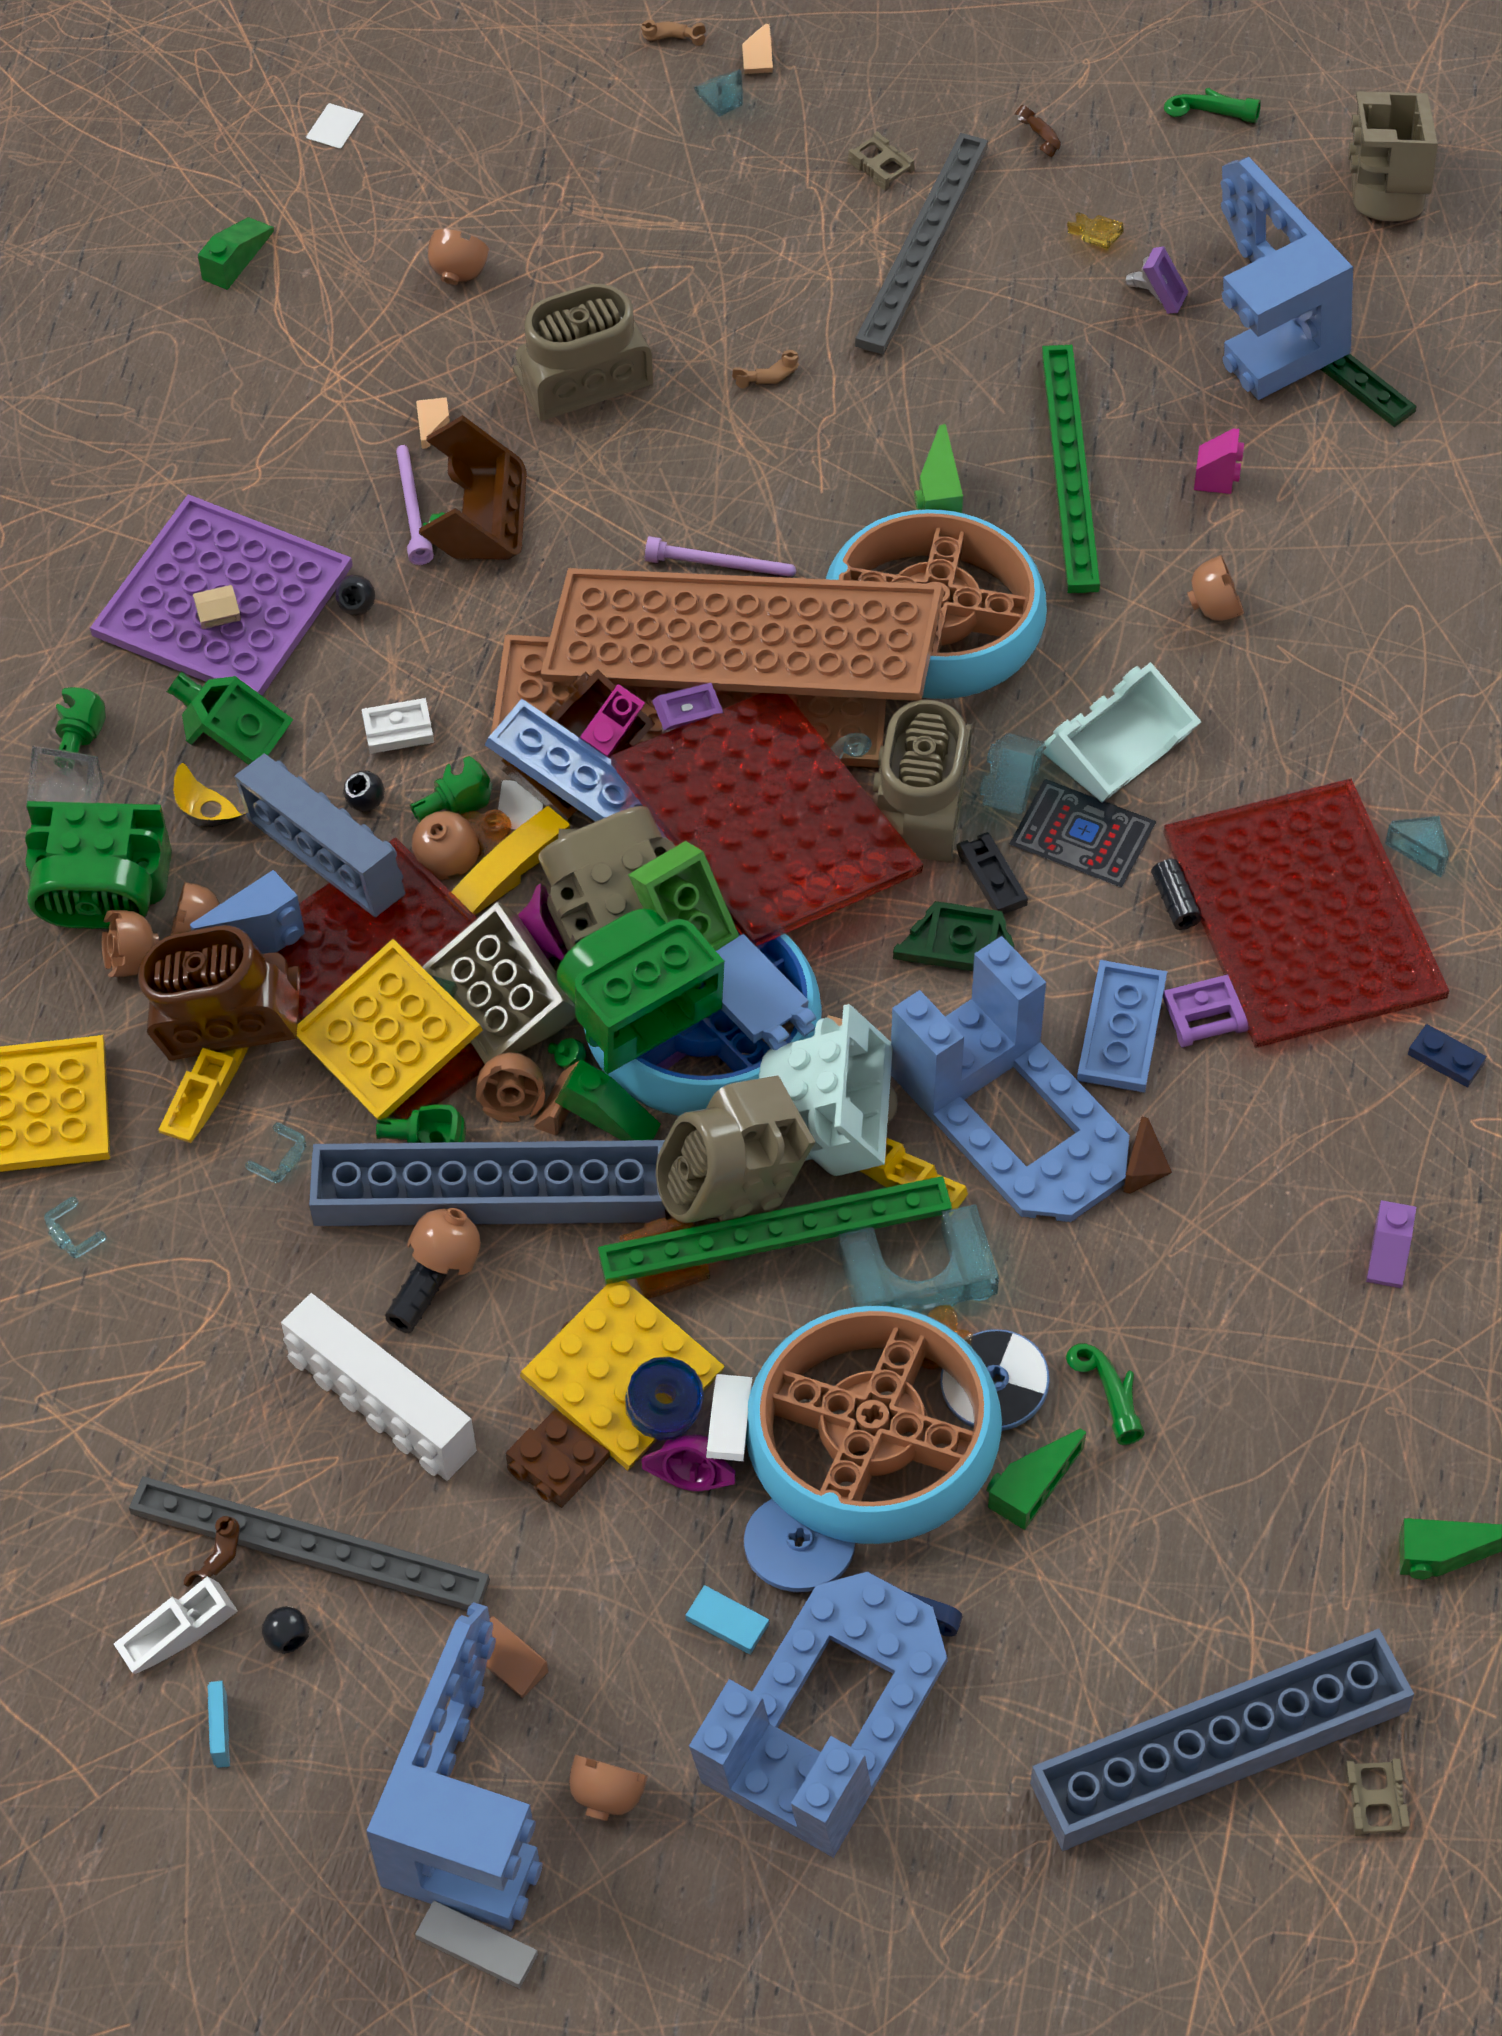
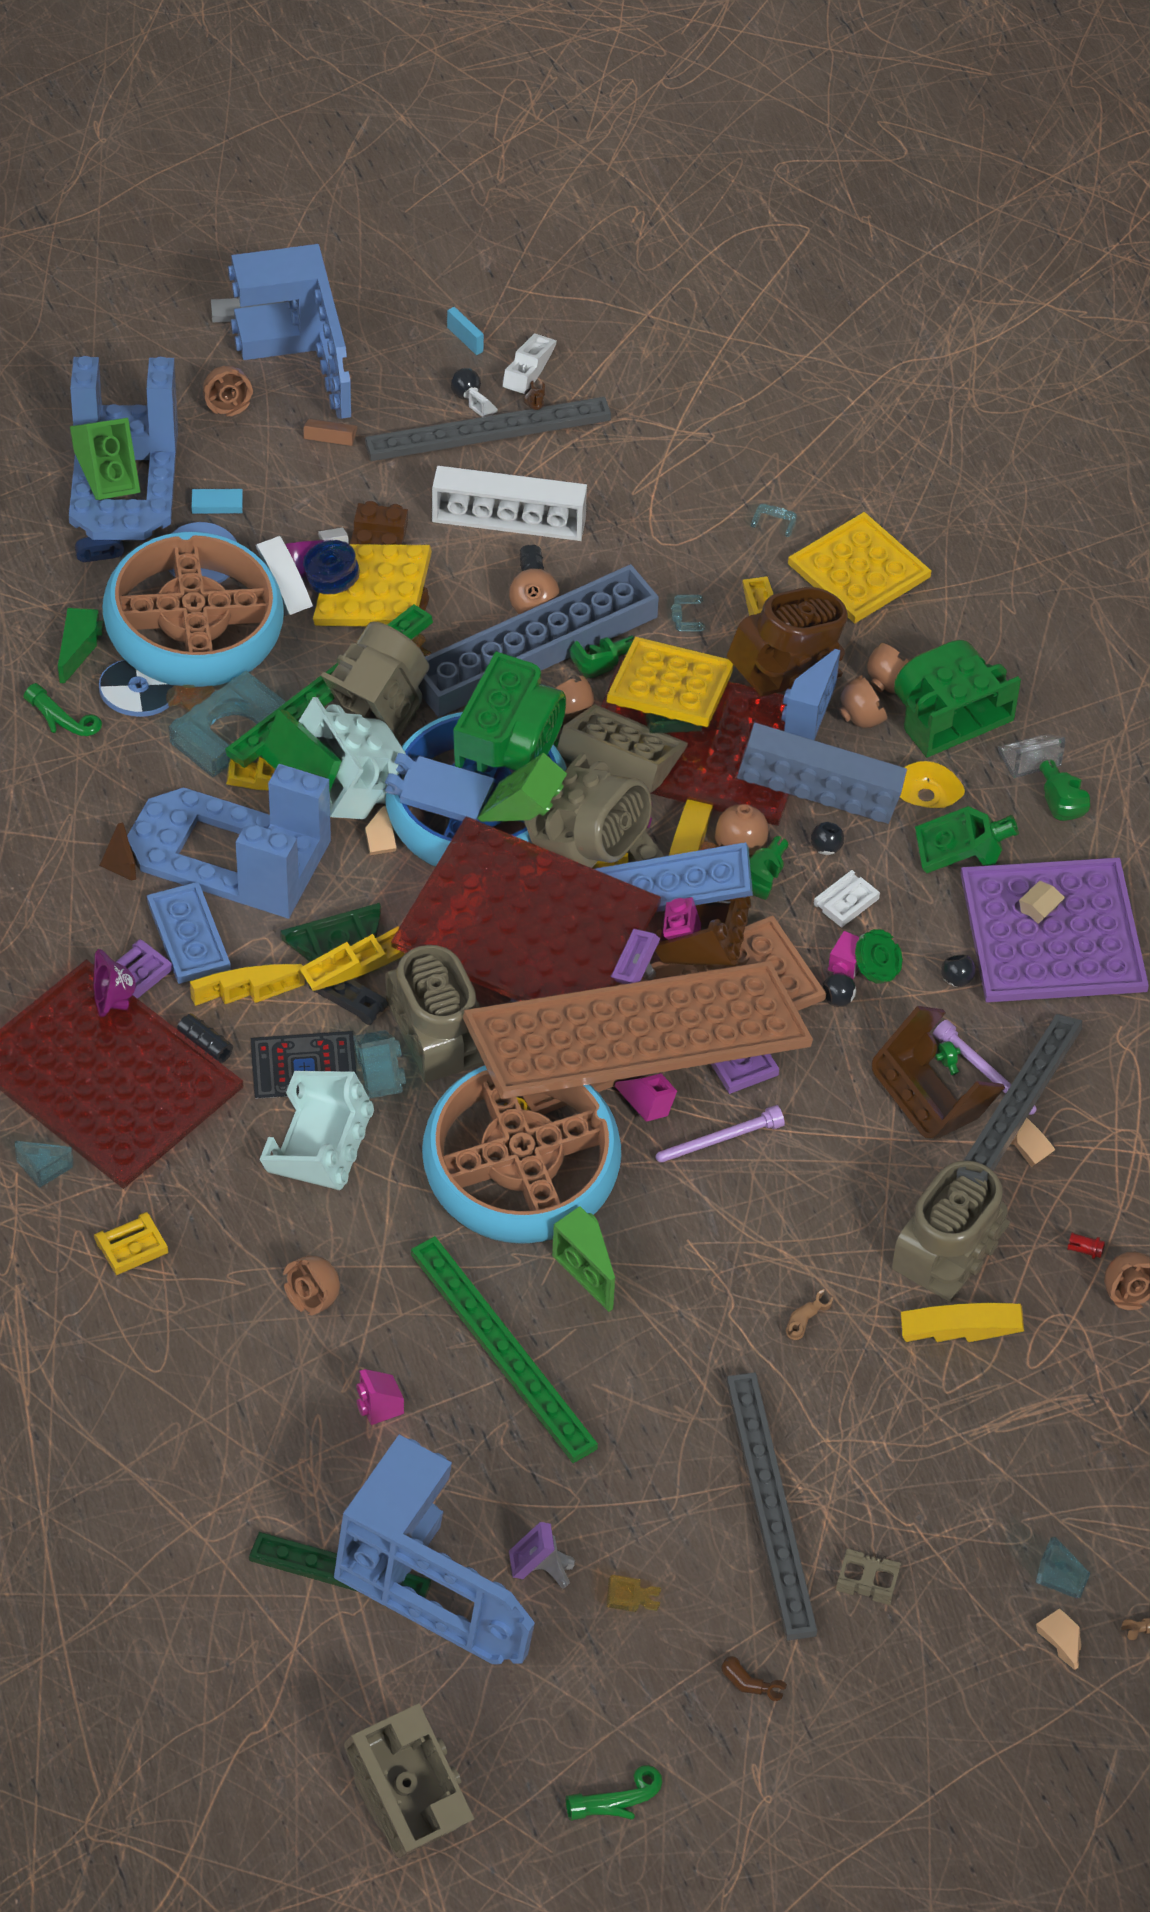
camera: 145 degrees right, 5 degrees down
(284, 1589) = (480, 404): none -> white slope
(416, 423) = (1022, 1096): none -> dark grey plate
(423, 641) = (878, 956): none -> green tile
(449, 663) = (843, 955): none -> dark pink brick
(460, 307) = (1086, 1245): none -> red pin
(487, 633) = (839, 989): none -> black piece
(618, 1479) = (334, 534): none -> white slope
(648, 302) = (955, 1321): none -> yellow slope
(851, 1705) = (107, 457): none -> bright green slope
(884, 1113) = (298, 748): none -> green tile
(970, 887) = (351, 961): none -> yellow slope
(1105, 936) = (254, 981): none -> yellow slope
(1253, 972) = (112, 984): none -> magenta hat
(1373, 714) = (134, 1249): none -> yellow plate

